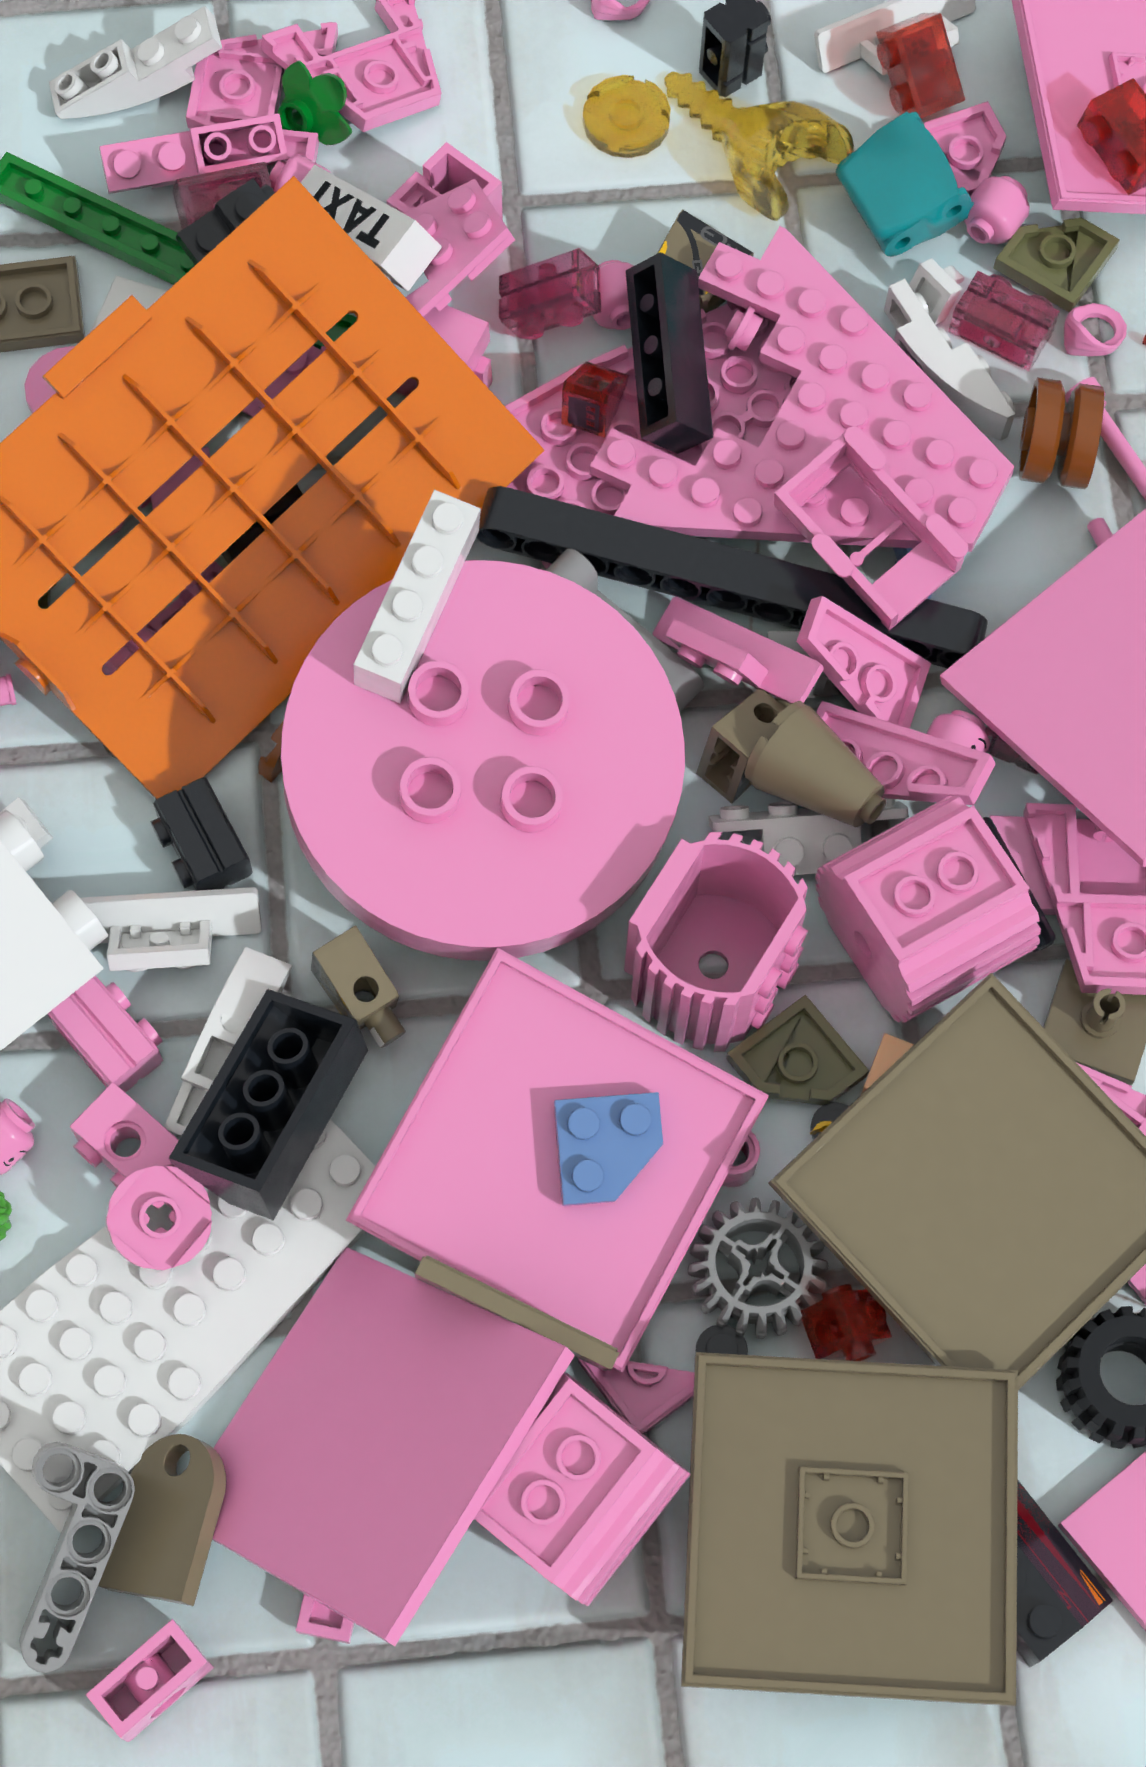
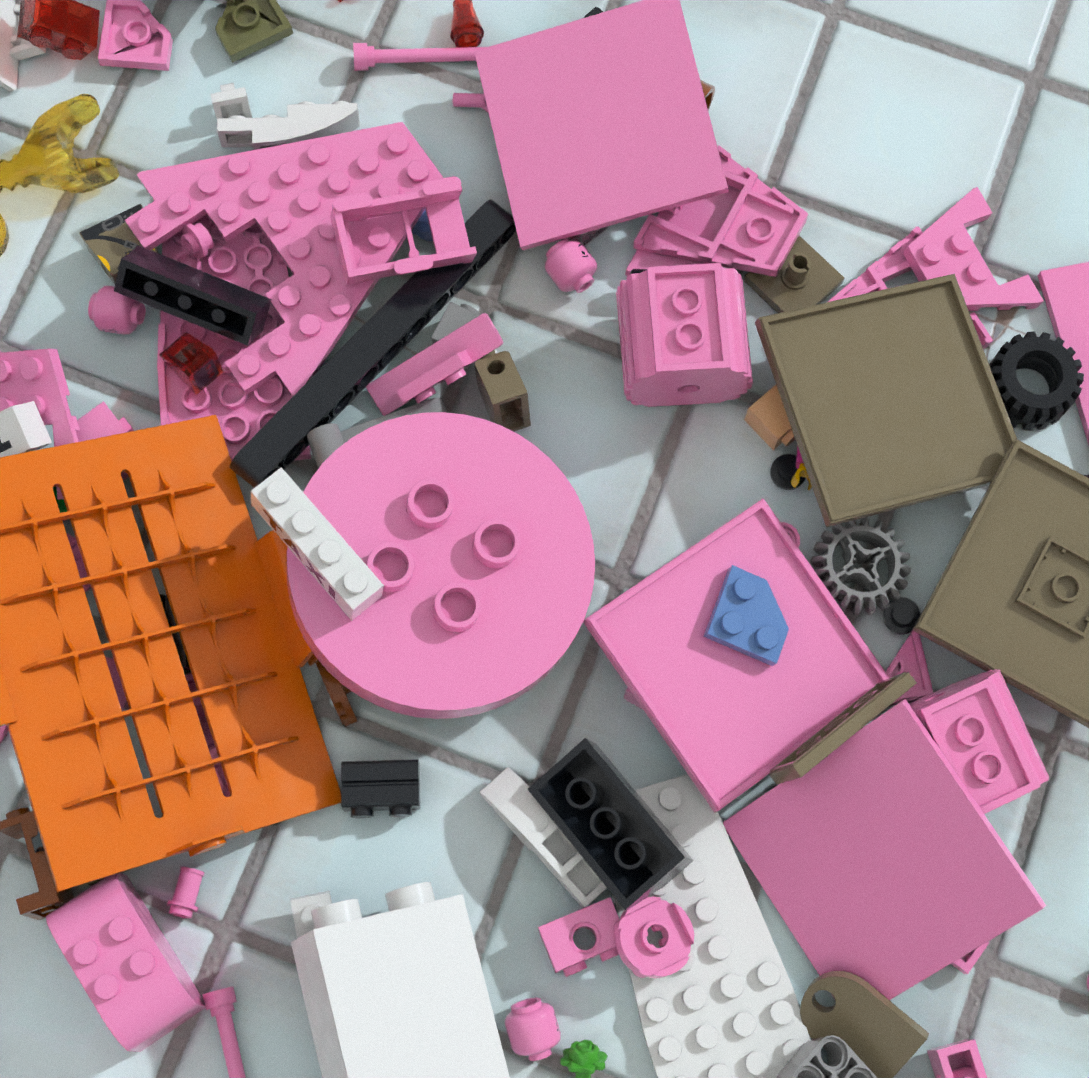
camera: 65 degrees left, 5 degrees up
(106, 1035) = (501, 915): bright pink brick -> none
(172, 926) = (438, 838): white bracket -> none
(348, 967) = (533, 729): dark tan torso -> none
(550, 294) = (95, 352): clear pink brick -> none
(723, 903) = (649, 449): bright pink piece -> none
(798, 1058) = (731, 471): olive plate -> none
(799, 834) = (582, 387): white bracket -> none
(814, 769) = (555, 355): dark tan cone -> none
(845, 1324) = (925, 529): clear red brick -> none
(863, 663) = (489, 288): bright pink wing -> none
(903, 186) = (144, 82): teal piece -> none
(910, 761) = (556, 317): bright pink wing -> none
(997, 210) = (194, 36): bright pink head -> none
(1004, 320) = (278, 75): clear pink brick -> none
(1066, 434) = (388, 82): dark orange wheel -> none
(1079, 340) = (315, 38): bright pink piece -> none

